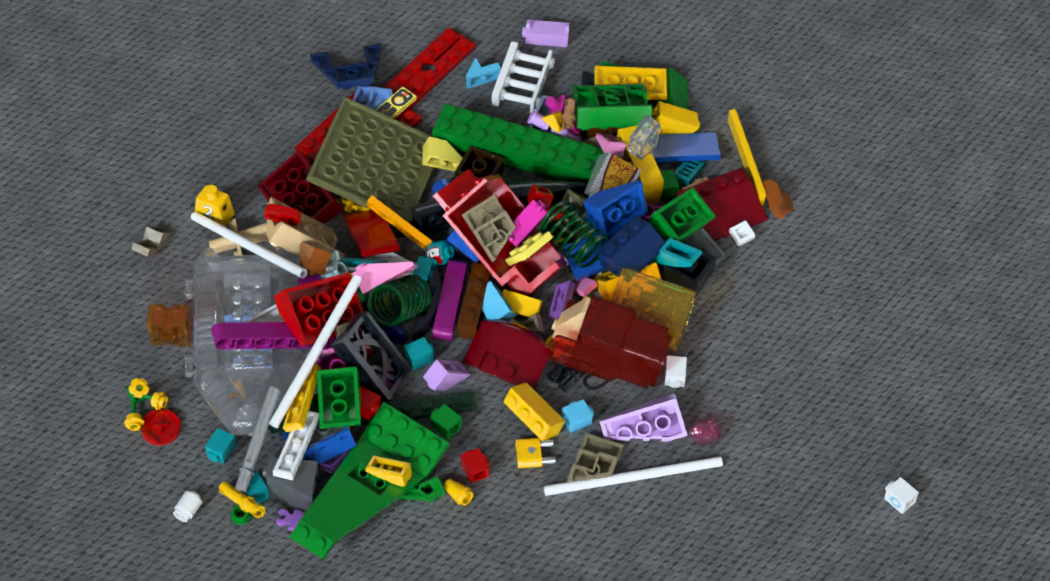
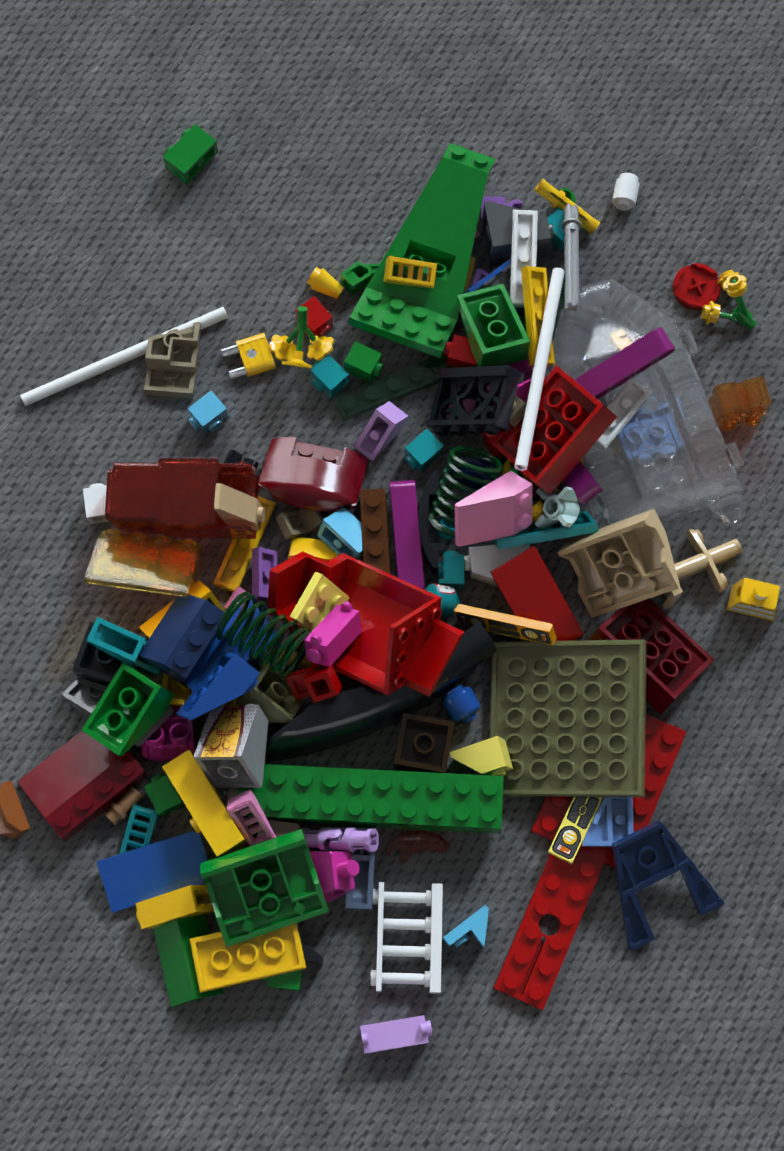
camera: 165 degrees right, 20 degrees up
(220, 446) = (618, 267): teal brick -> none
(250, 245) = (679, 525): white piece -> none
(282, 213) = (650, 545): red beam -> none
(313, 259) = (590, 504): dark orange slope -> none
(475, 420) = (328, 376): none -> teal brick
(478, 439) = (285, 349): none -> yellow plant
(490, 226) = (373, 611): dark tan slope -> none
(534, 411) = (261, 400): yellow brick -> none
(554, 120) = (338, 837): yellow slope -> none
(569, 113) = (318, 845): medium nougat pin -> none
(644, 137) = (201, 810): clear slope -> none
(647, 421) = (113, 434): lavender wedge -> none
(705, 431) = (47, 429): clear pink head -> none
(742, 233) = (47, 741): white plate -> none
(746, 154) = (60, 876): yellow tile -> none

